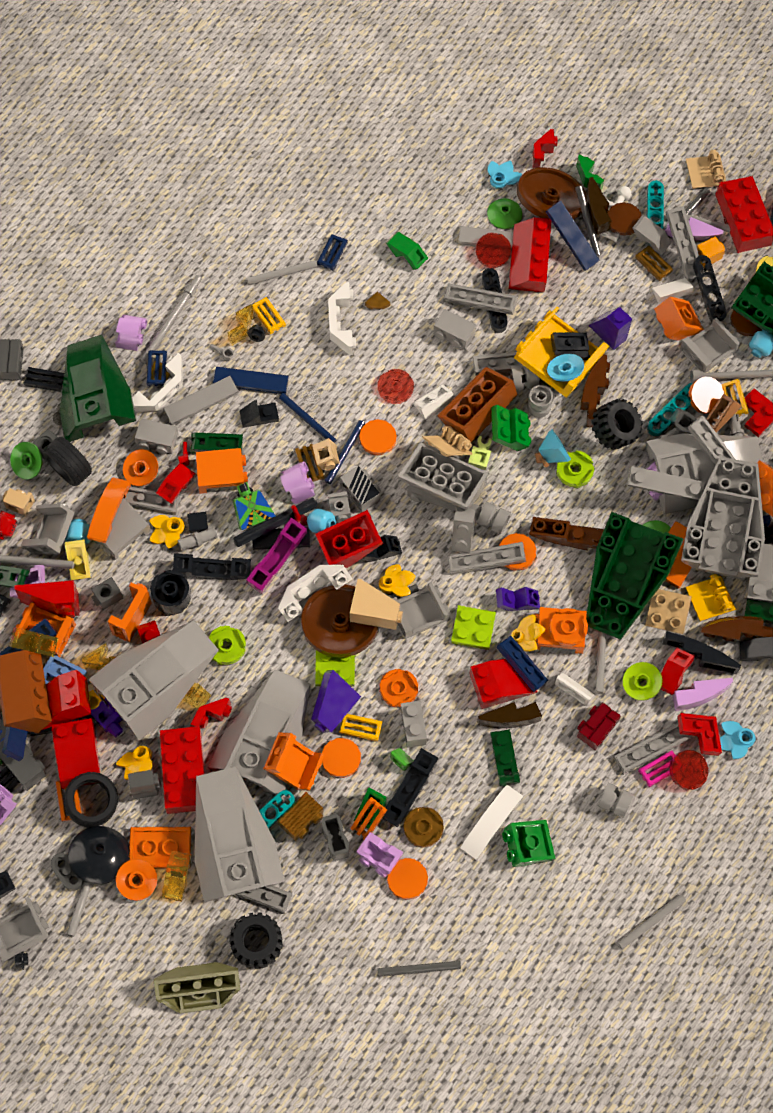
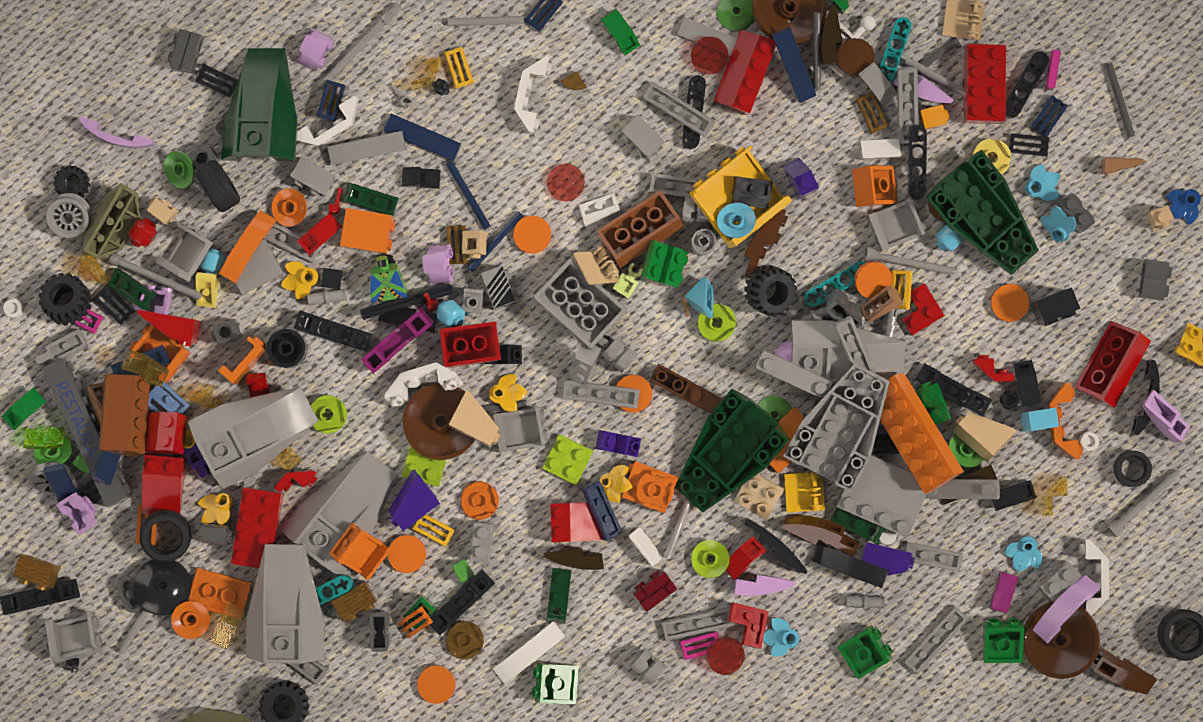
camera: 15 degrees right, 20 degrees up
(378, 854) = (416, 657): lavender cylinder -> none

